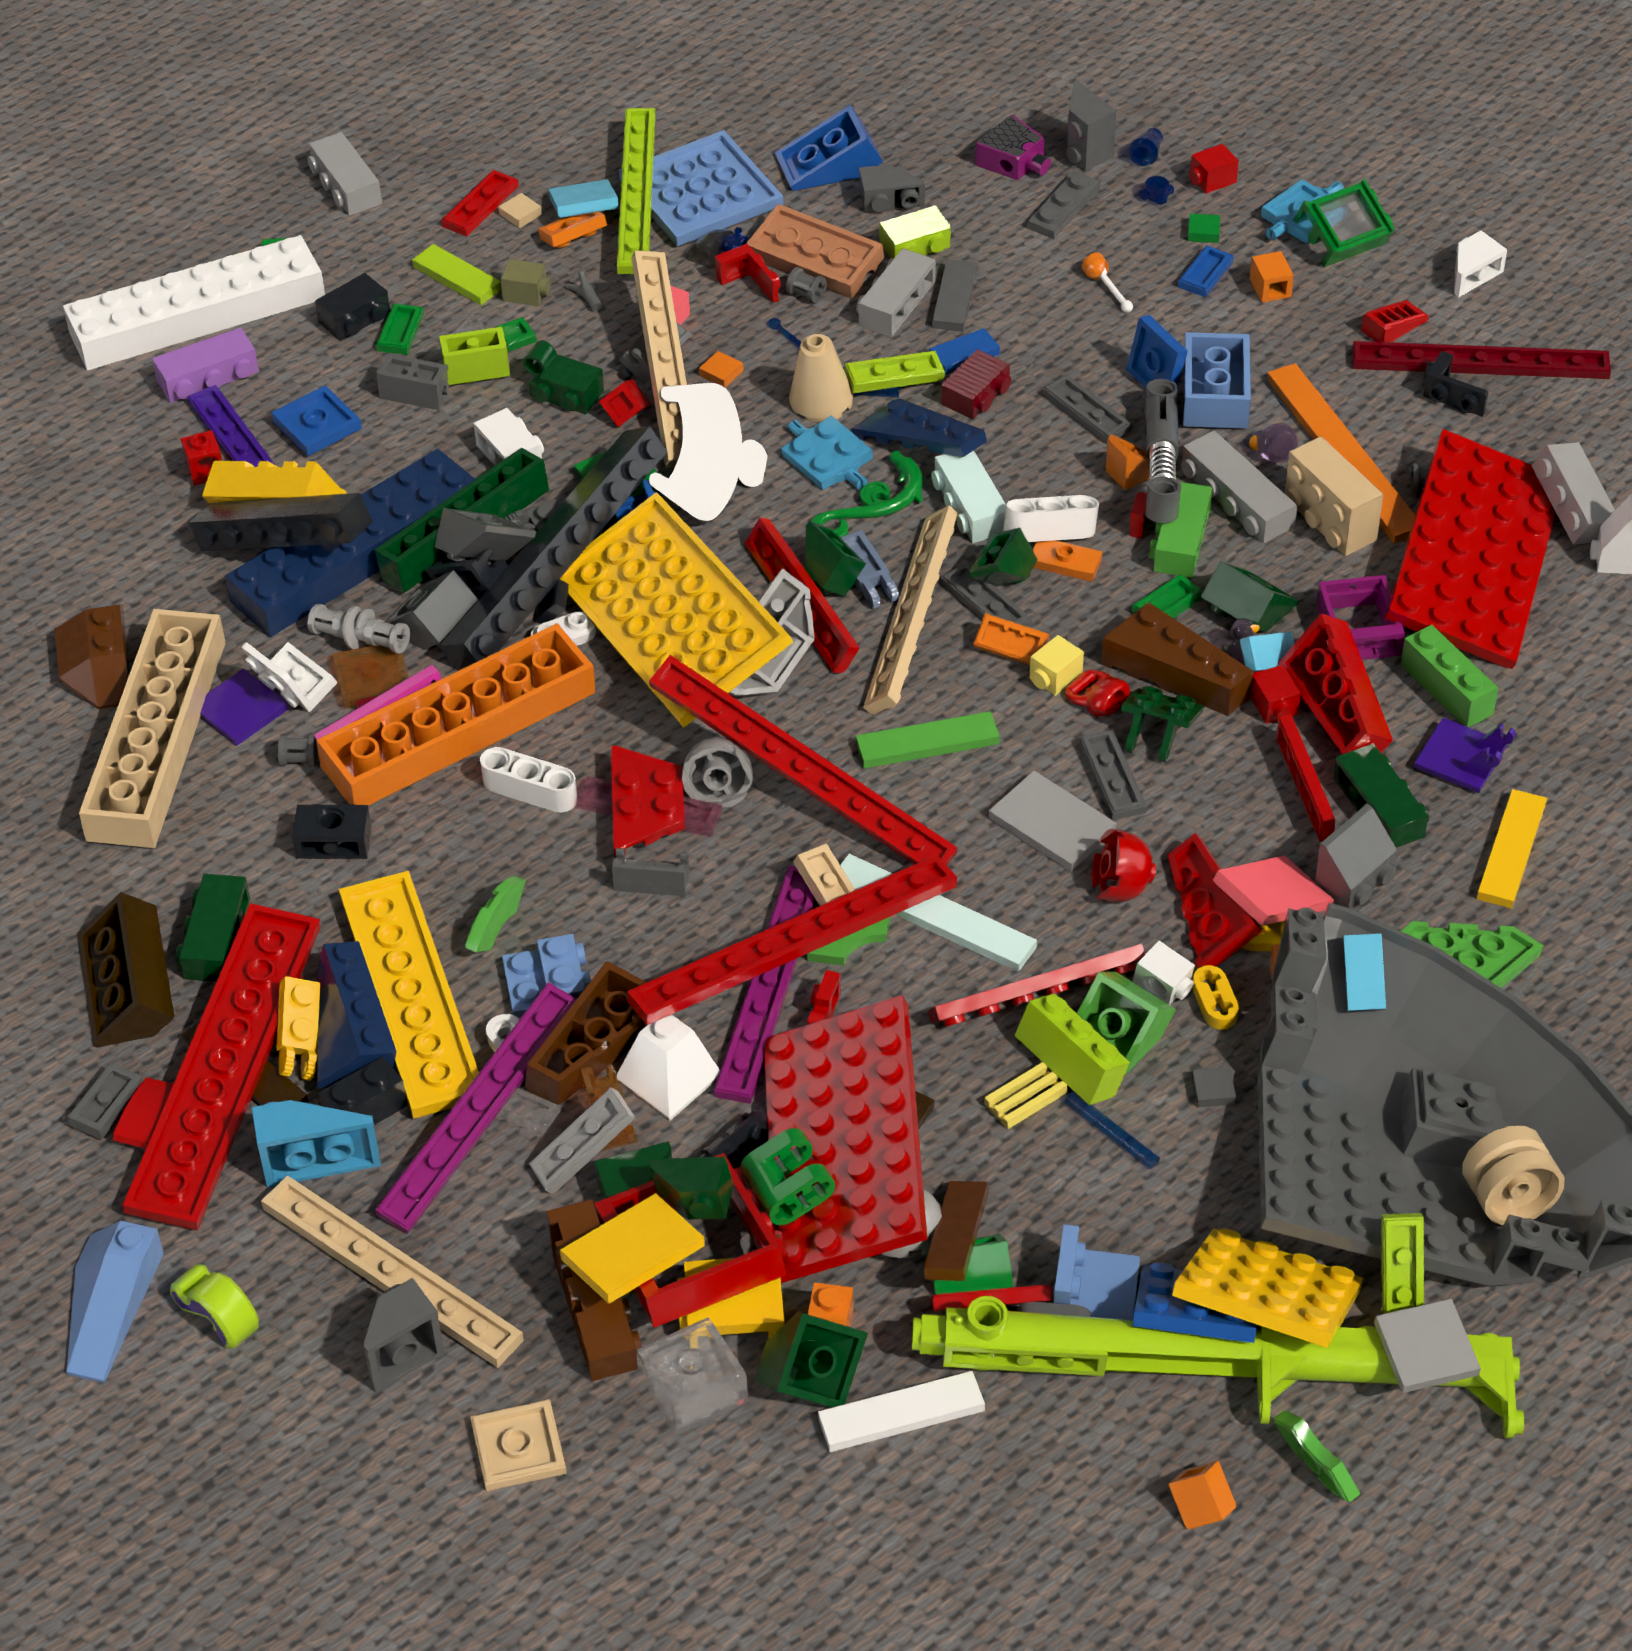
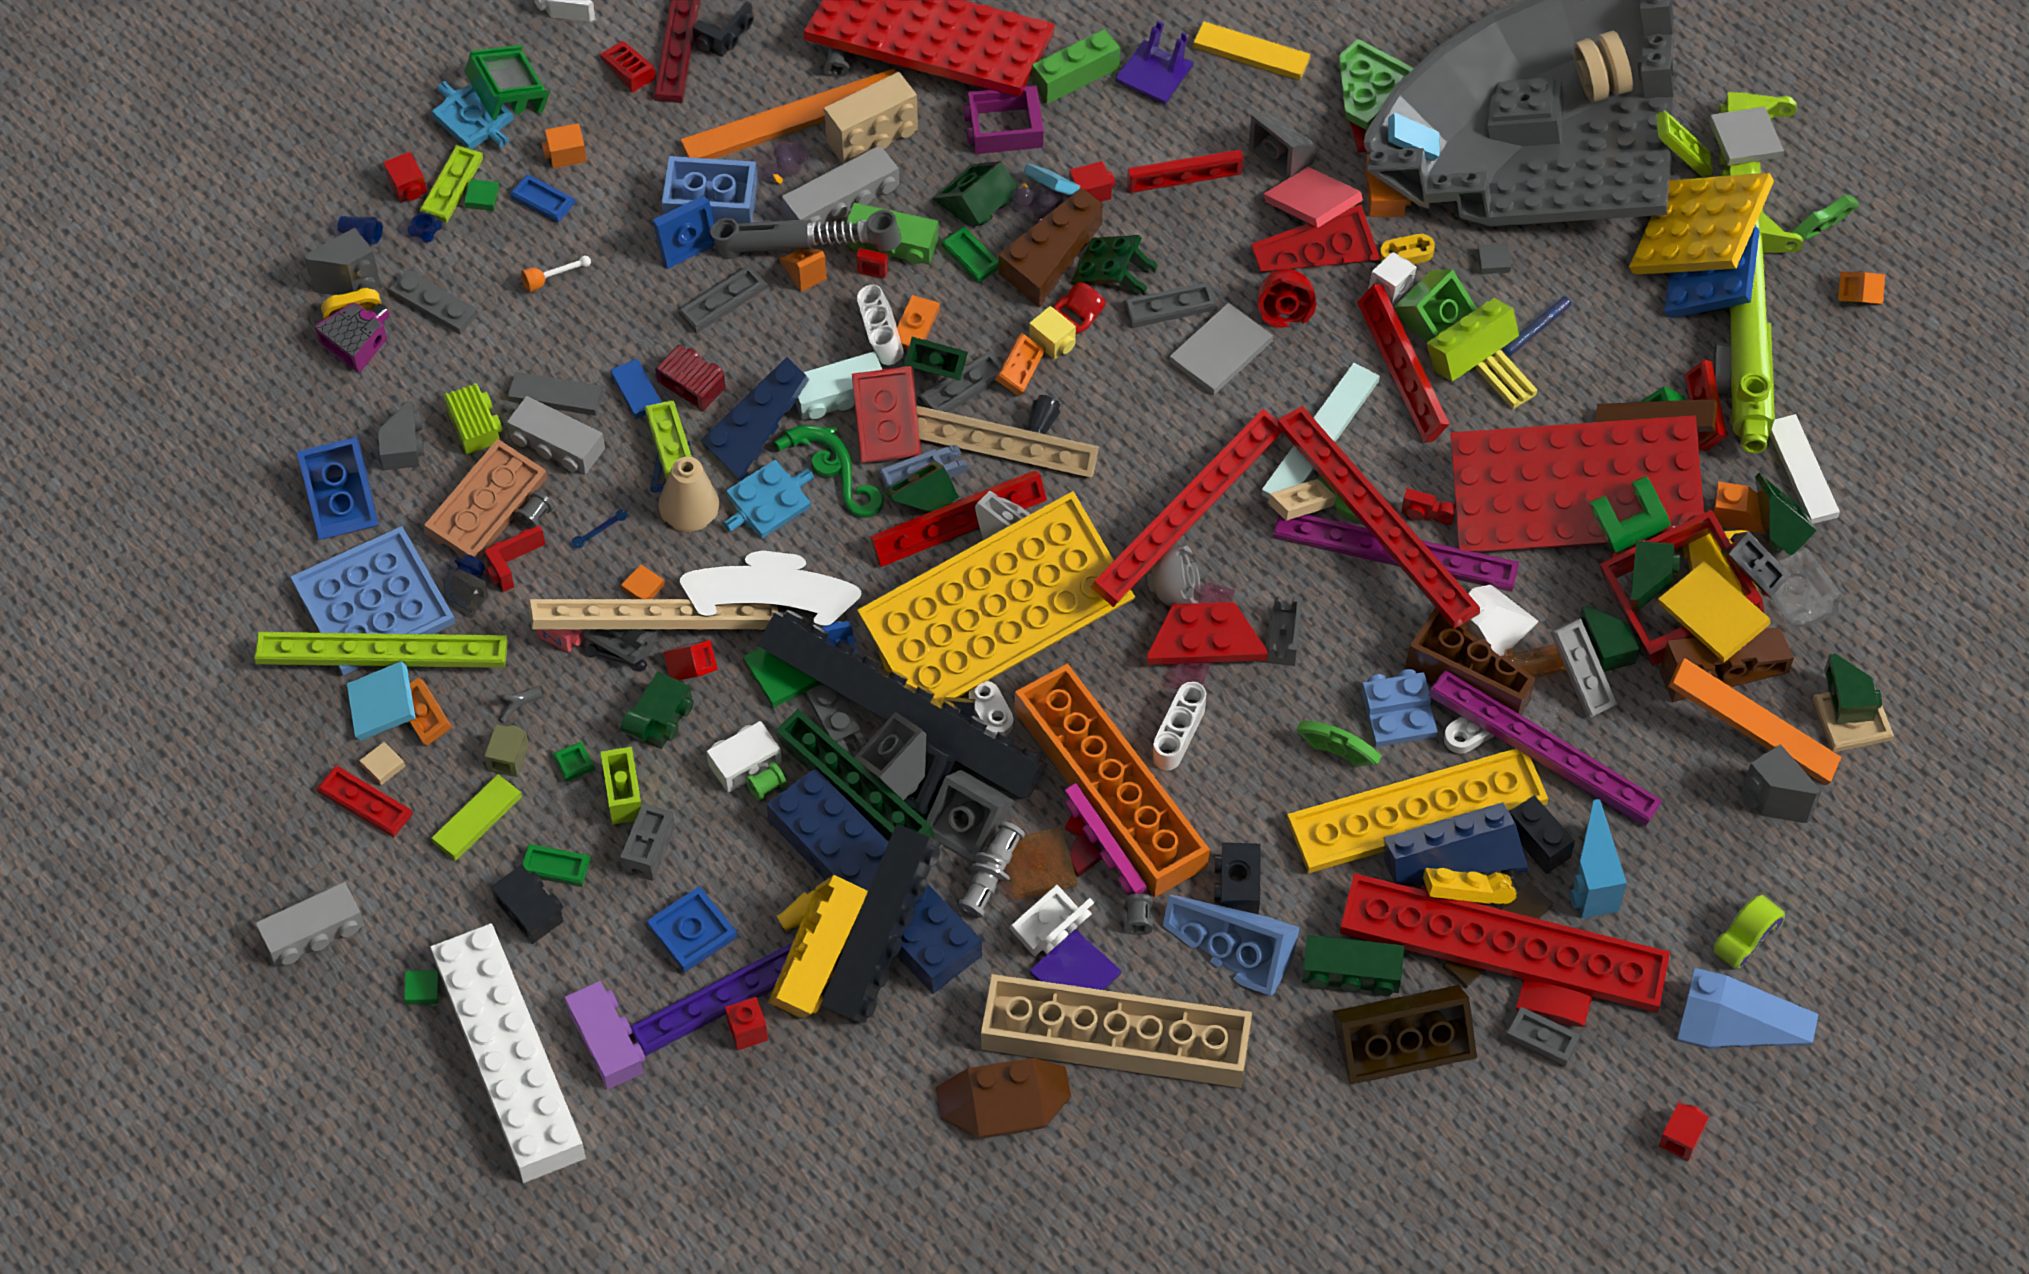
camera: 90 degrees left, 10 degrees up
(257, 834) = (1244, 942): none -> medium blue wedge
(387, 1266) = (1692, 822): tan plate -> none
(476, 458) = (765, 781): none -> bright green bush
(490, 1308) = (1753, 720): none -> orange tile
(540, 1423) = (1851, 691): none -> dark green slope
(697, 1289) = (1756, 563): none -> black hinge
(741, 1138) = (1556, 563): black hinge -> none
(926, 524) = (886, 414): none -> red tile
(927, 739) = (1129, 433): bright green tile -> none
(941, 661) = (1043, 414): none -> black cone
(1052, 148) = (364, 297): none -> yellow plate
(1095, 1279) = (1684, 341): medium blue bracket -> none
(1230, 208) = (452, 183): none -> lime tile
(1336, 685) = (1098, 136): red wedge -> none
(1370, 779) = (1204, 124): dark green brick -> none

